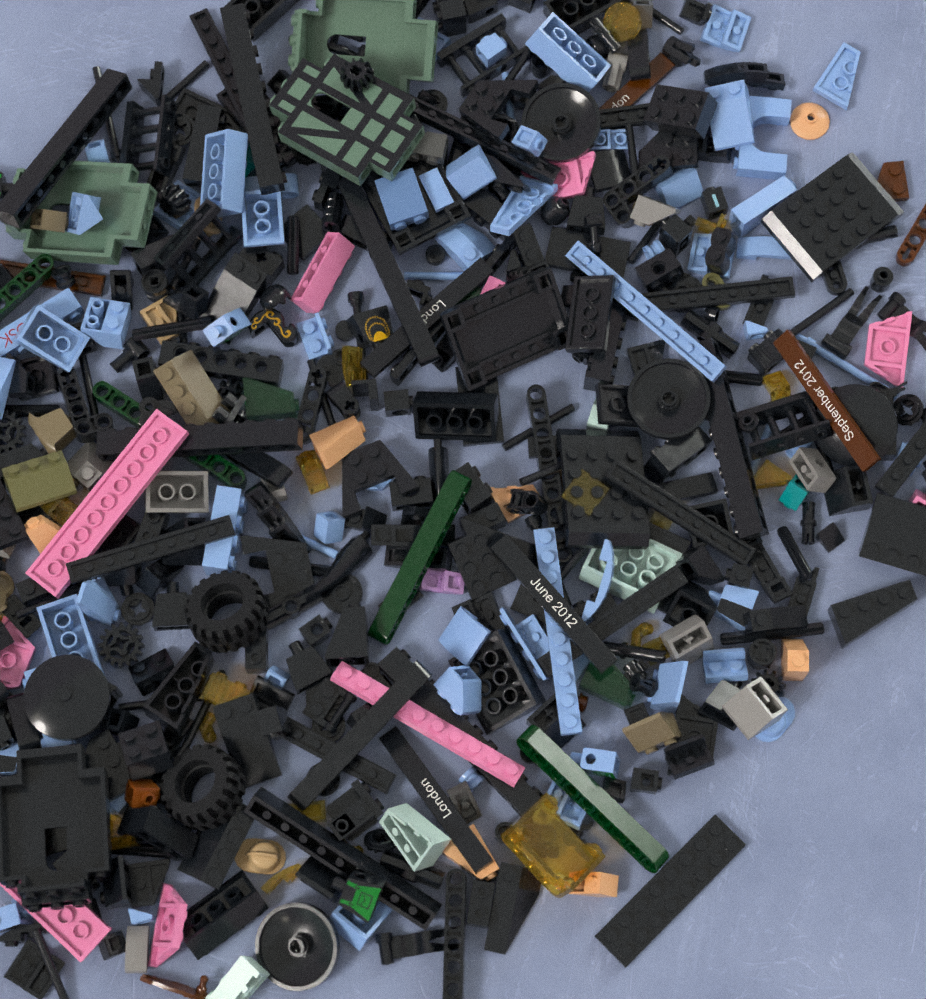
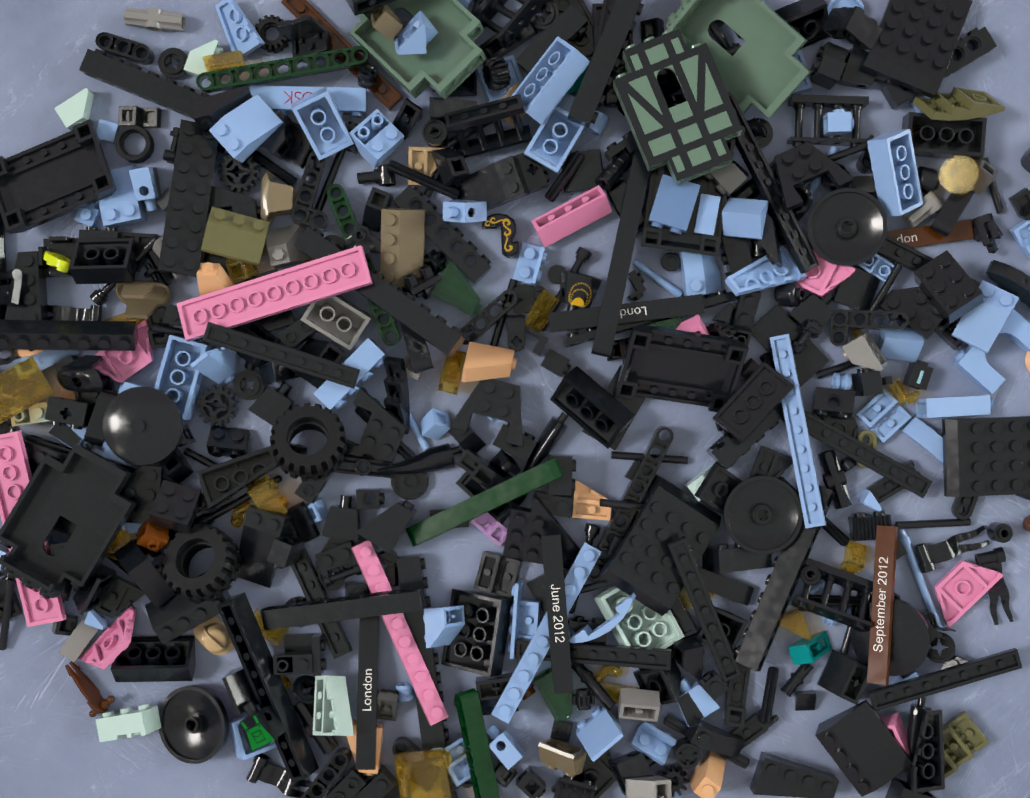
camera: 35 degrees right, 15 degrees up
(273, 295) = (519, 210): black hair -> none
(286, 874) = (221, 665): clear yellow slope -> none
(360, 68) = (711, 85): black gear -> none
(464, 636) = (475, 582): light blue slope -> none
(523, 503) = (593, 514): black piece -> none
(530, 140) = (810, 225): light blue bracket -> none
(587, 501) = (640, 553): clear yellow piece -> none
(605, 35) = (937, 176): black axle -> none
(643, 685) = (582, 716): black bush -> none
(721, 249) = (888, 423): black brick -> none
(812, 470) = (830, 645): light grey brick -> none

